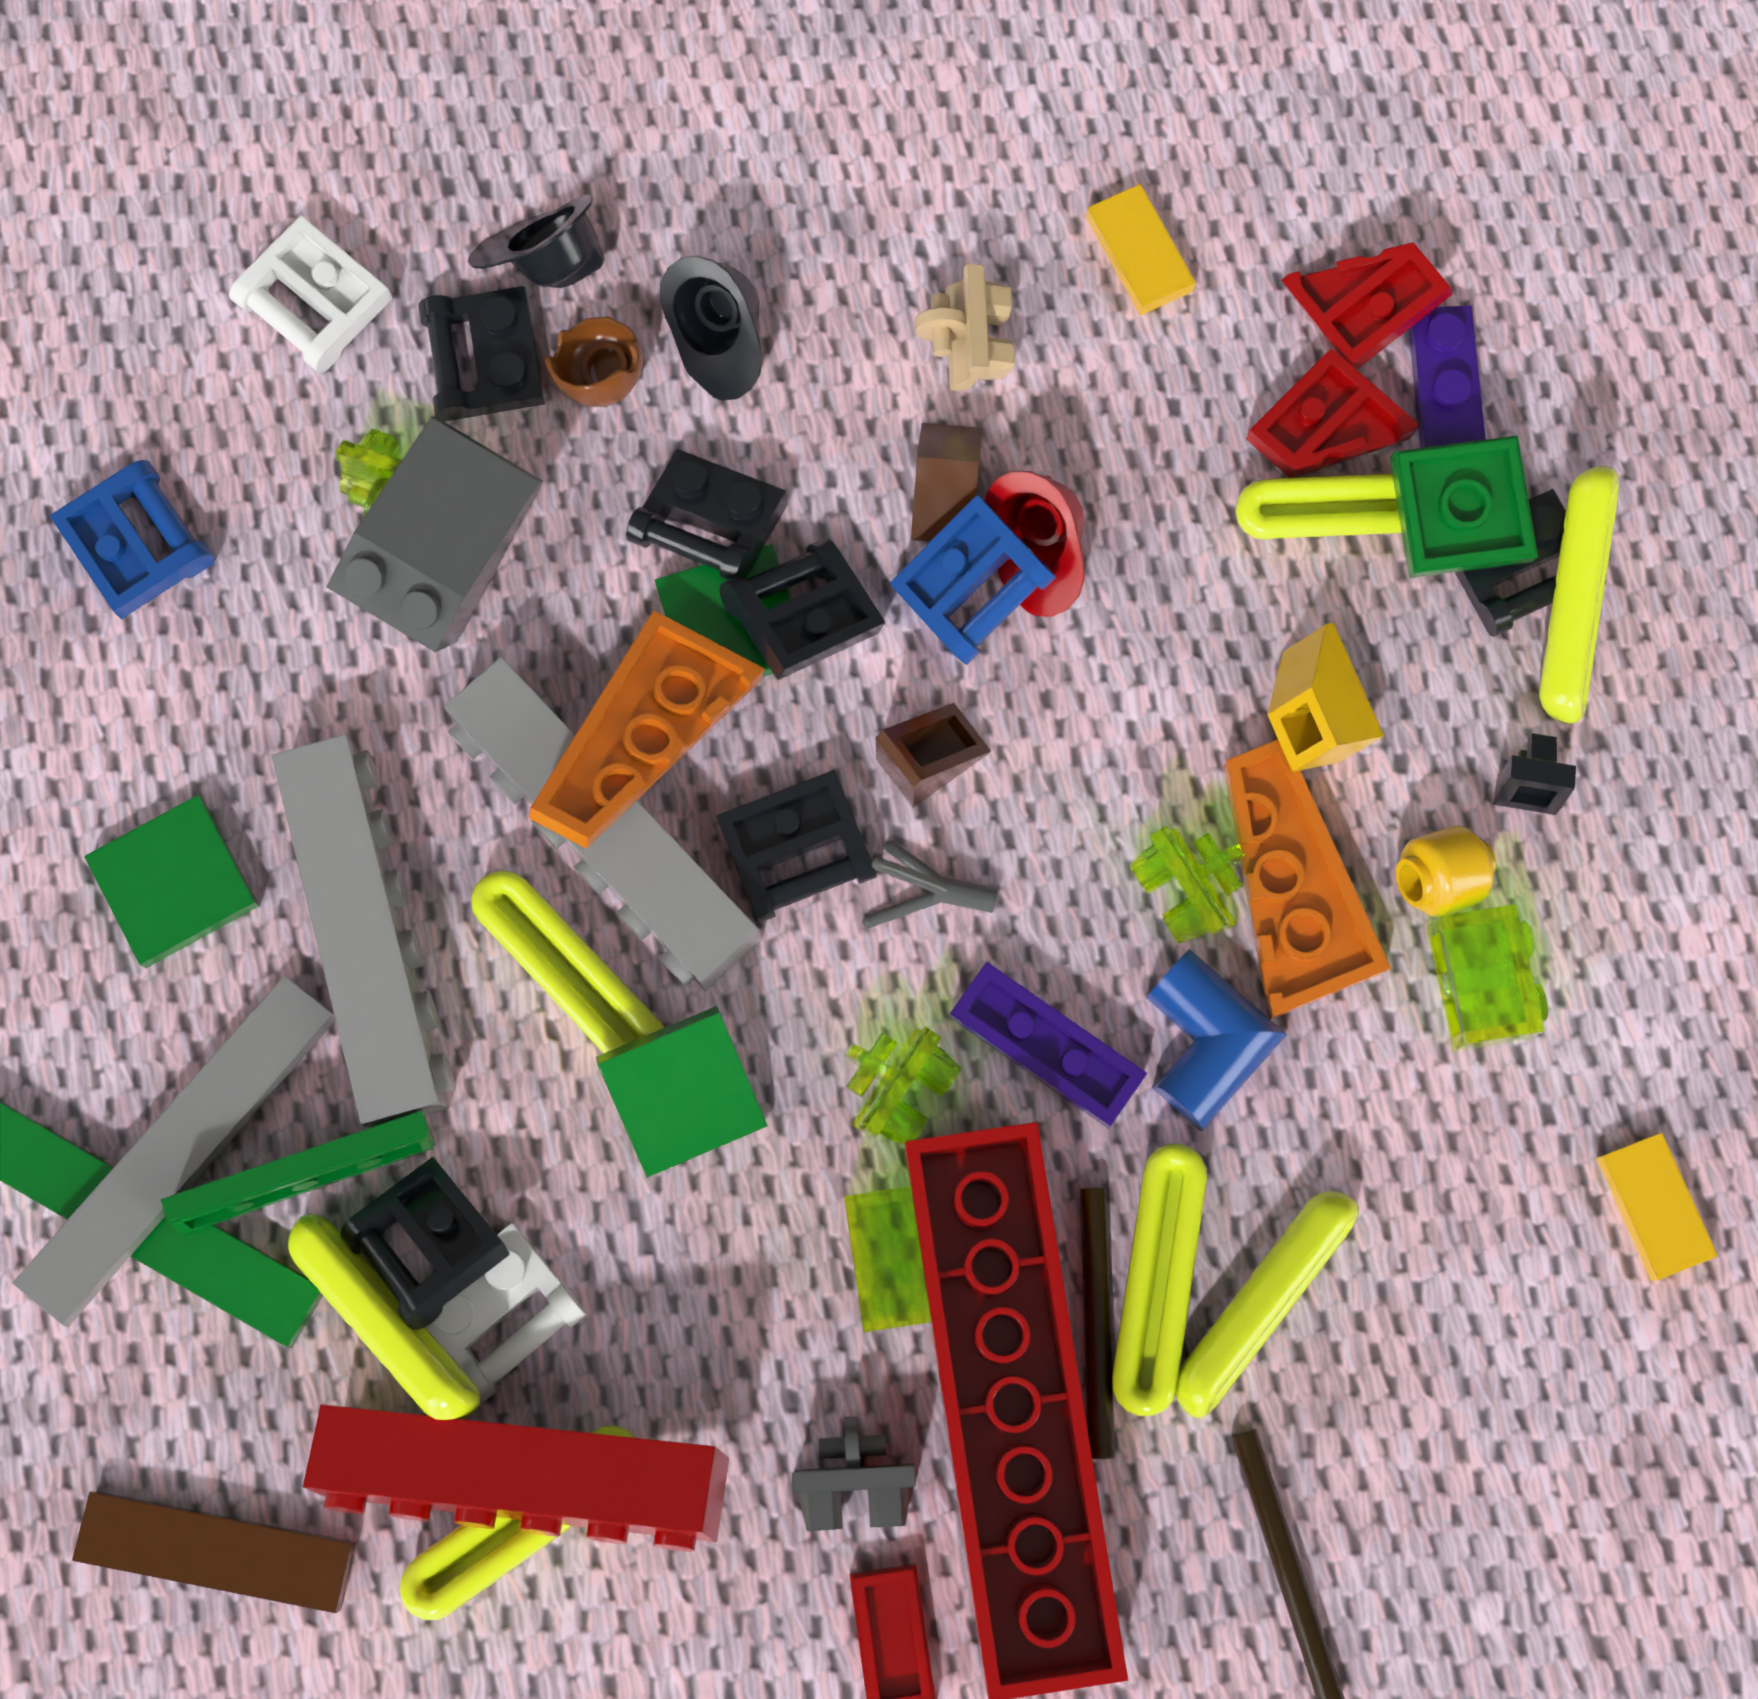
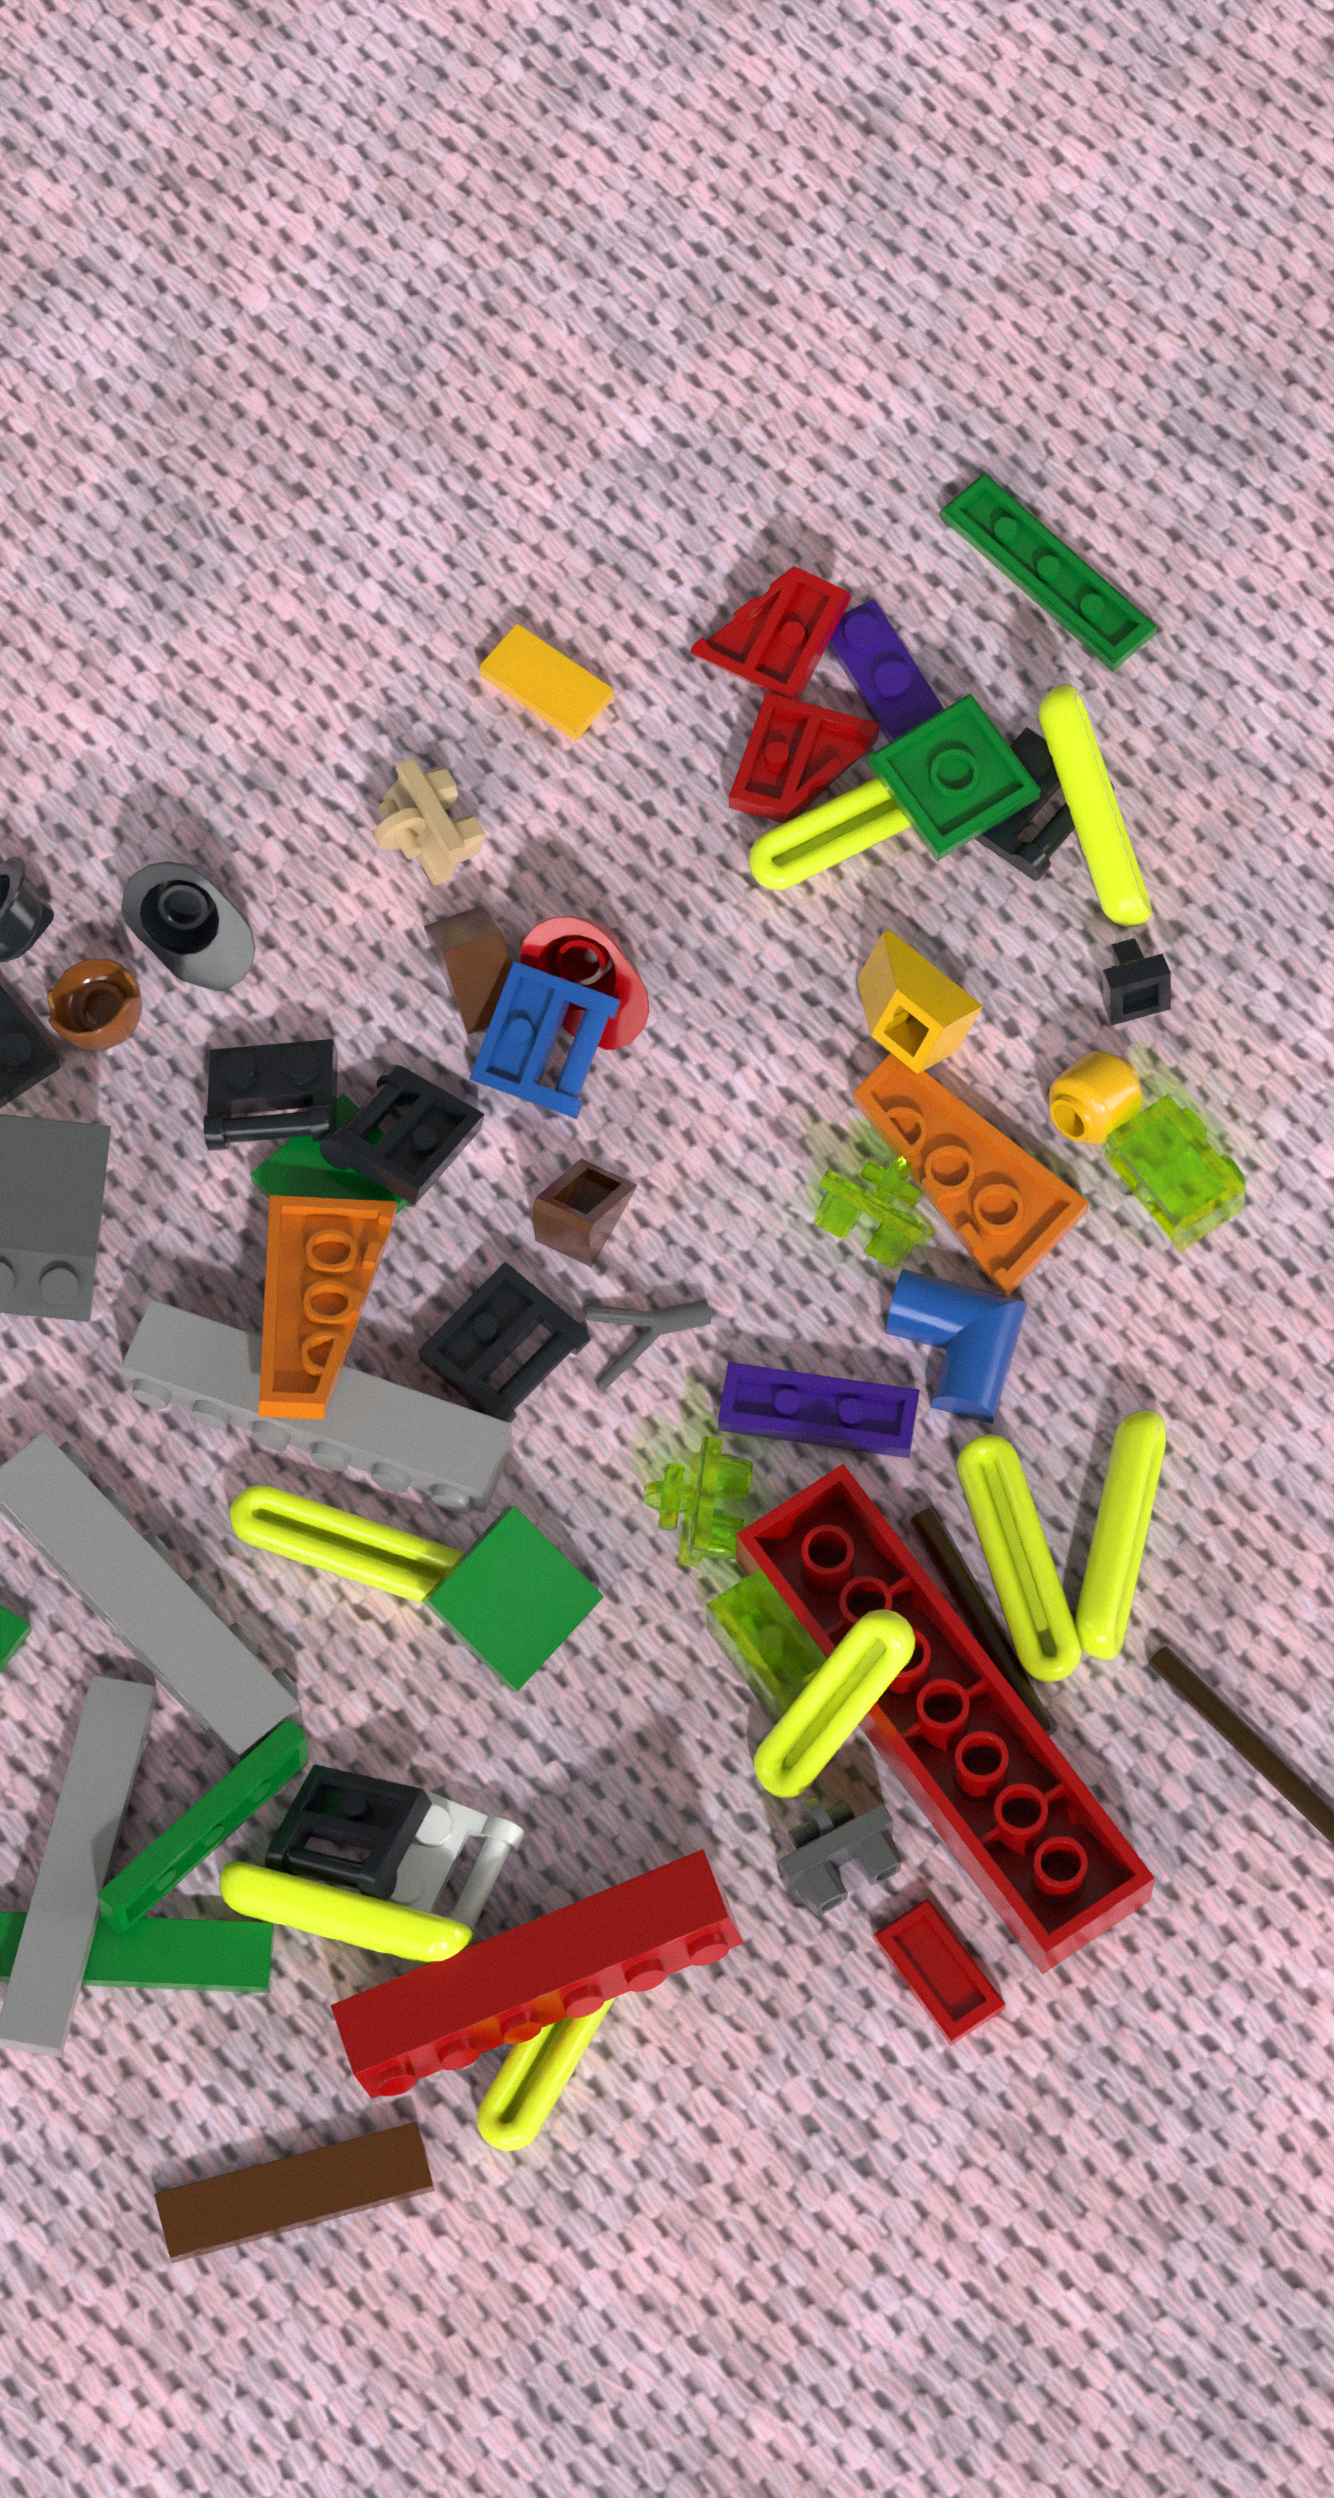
camera: 25 degrees left, 10 degrees down
(915, 1358) = (834, 1702): none -> neon yellow piece
(1643, 353) = (1048, 572): none -> green tile

